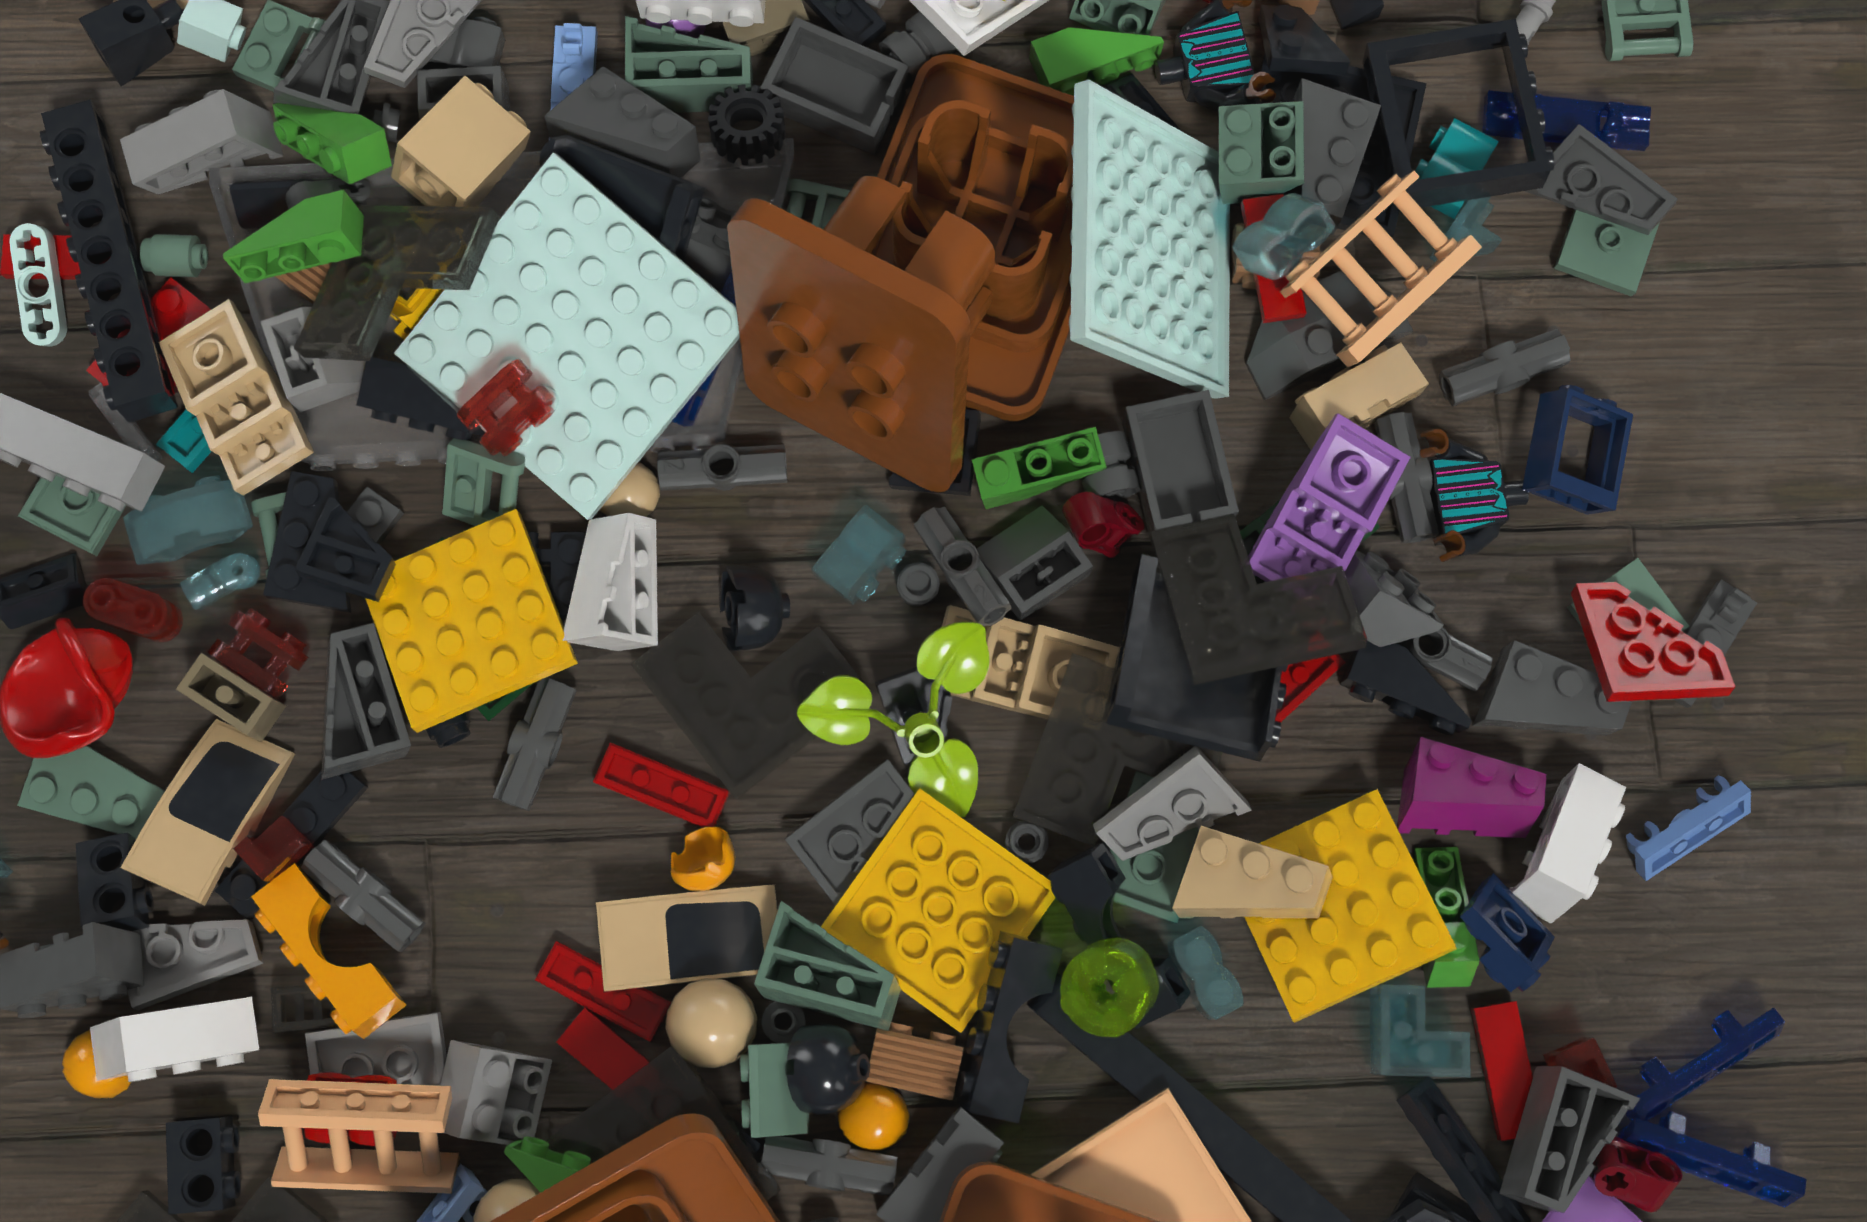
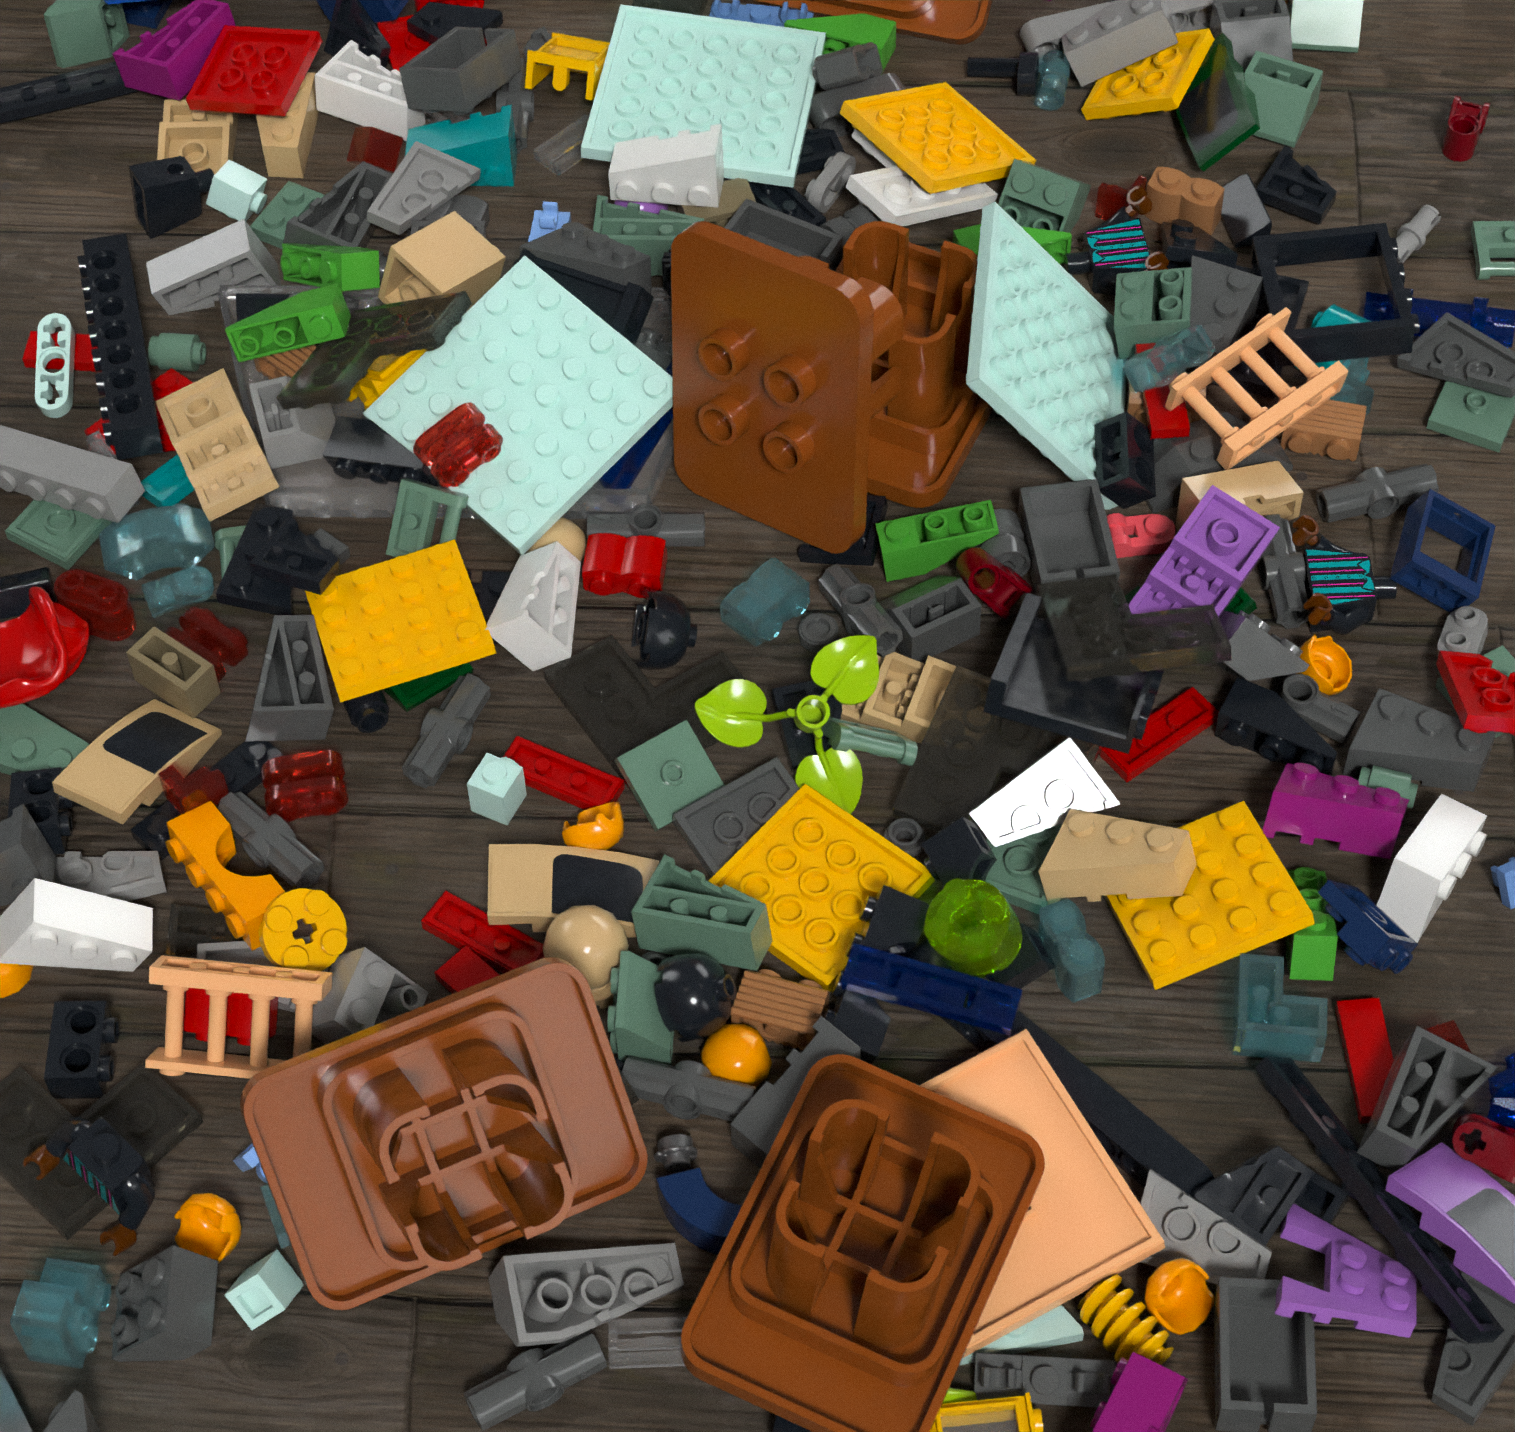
camera: 10 degrees right, 25 degrees down
(377, 847) = (304, 785): none -> clear red brick
(417, 1052) = (281, 920): none -> yellow plate
(597, 815) = (497, 788): none -> light aqua brick
(703, 517) = (624, 564): none -> red brick
(777, 788) = (669, 773): none -> sand green plate
(984, 730) = (870, 739): none -> sand green plate
(1071, 1059) = (931, 989): none -> clear blue hinge
(1235, 351) = (1125, 460): none -> black brick
(1266, 431) = (1151, 532): none -> coral plate
(1456, 600) = (1328, 664): none -> light orange hair
(1463, 294) = (1328, 430): none -> medium nougat brick
(1520, 748) = (1390, 779): none -> sand green brick
(1596, 549) = (1464, 631): none -> light grey plate

